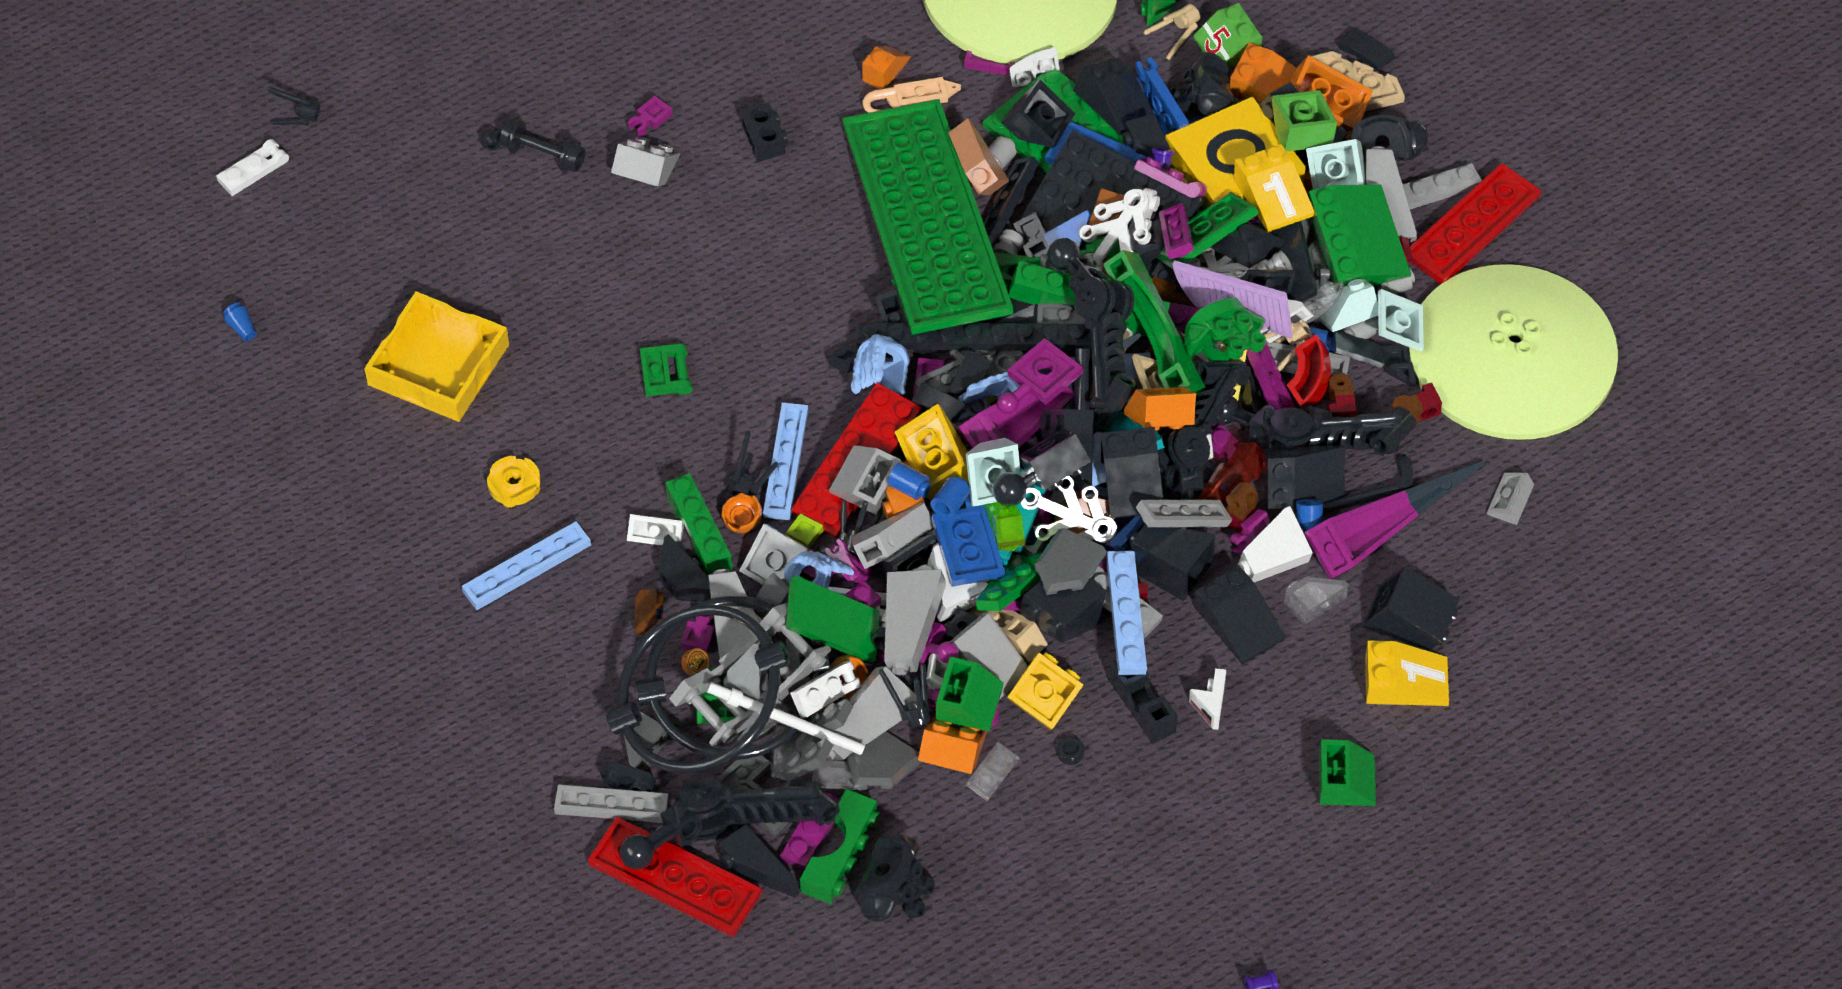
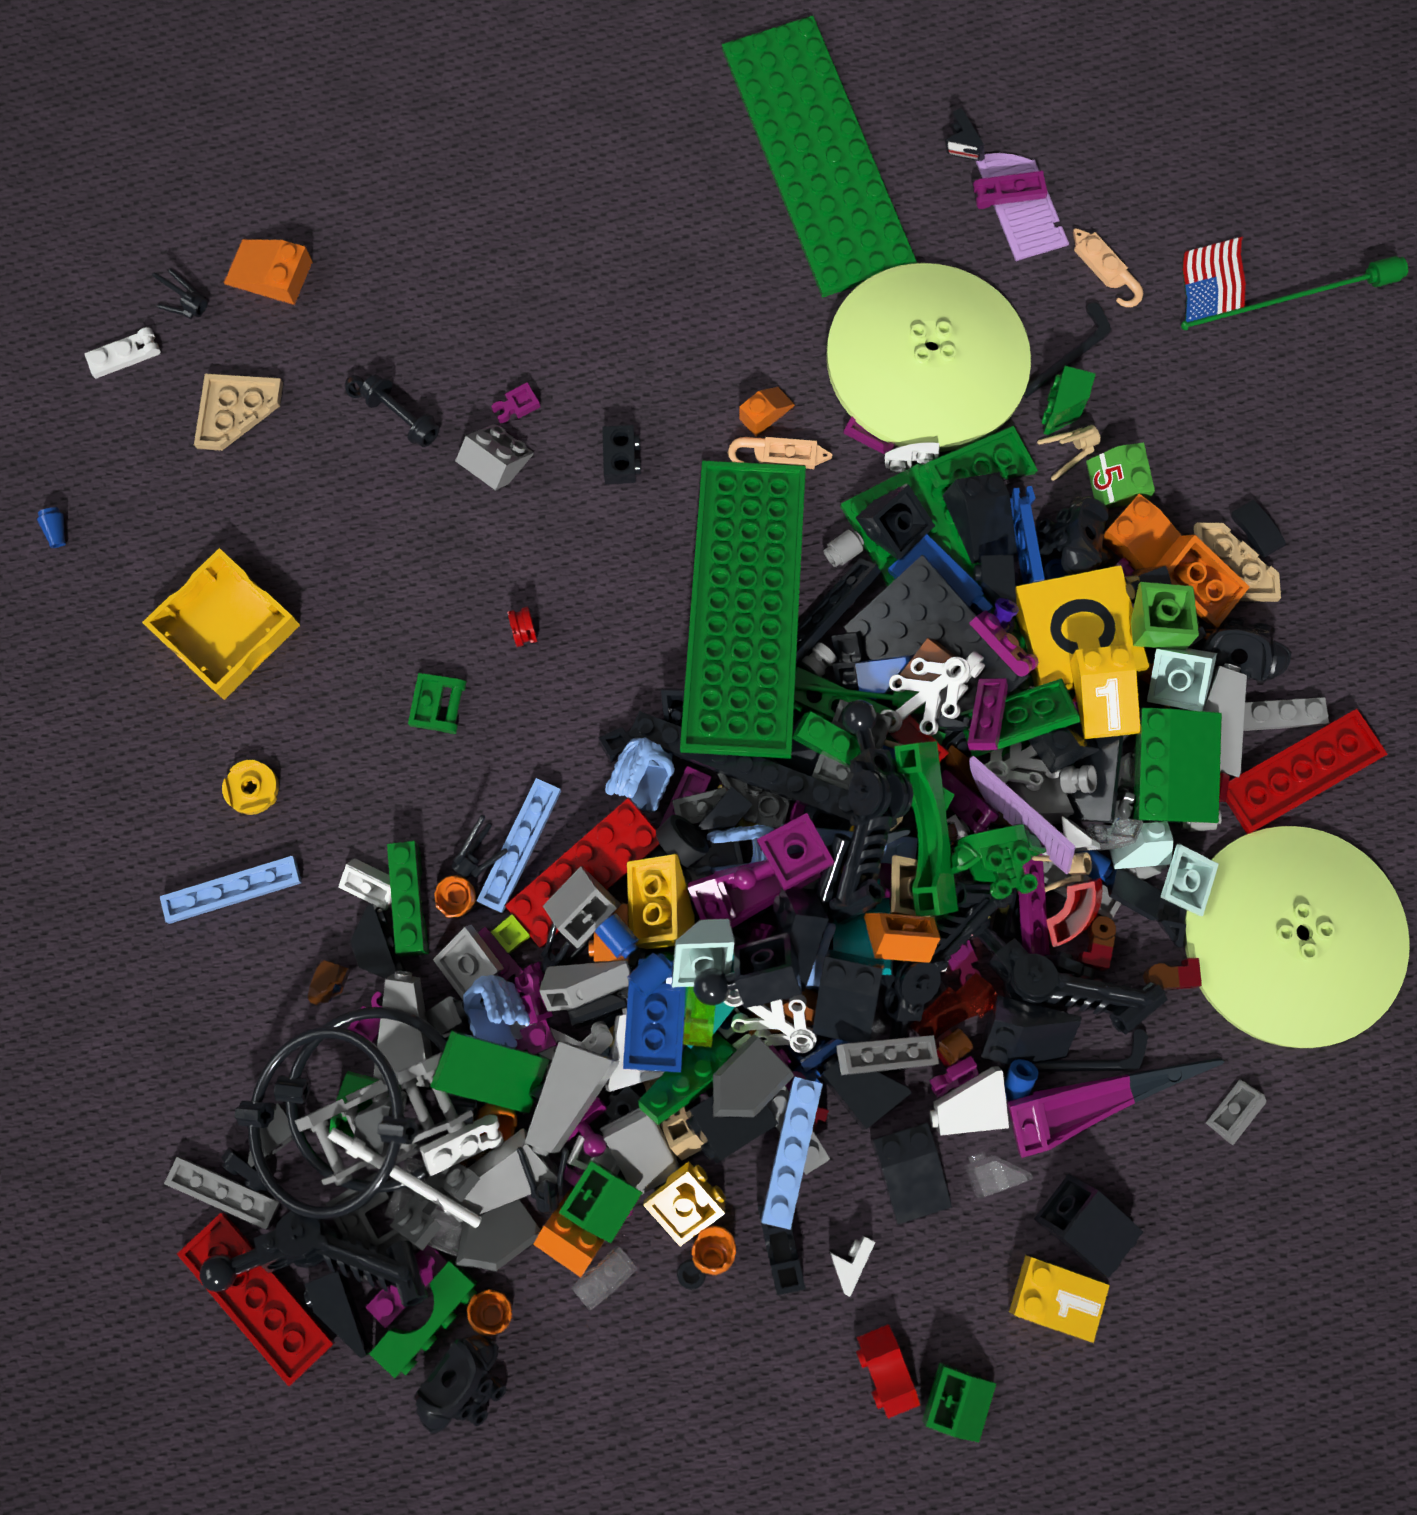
camera: 20 degrees right, 20 degrees up
(371, 64) = (270, 269): none -> orange slope
(380, 183) = (232, 407): none -> tan plate
(695, 661) = (341, 1075): tile -> none
(724, 287) = (522, 626): none -> red wheel
(897, 822) = (489, 1312): none -> orange hair
(977, 159) = (817, 552): nougat slope -> none
(1084, 720) = (714, 1250): none -> orange hair
(1106, 45) = (996, 453): none -> green wing
(1274, 769) = (888, 1371): none -> red brick
(1275, 279) = (1063, 800): black slope -> none

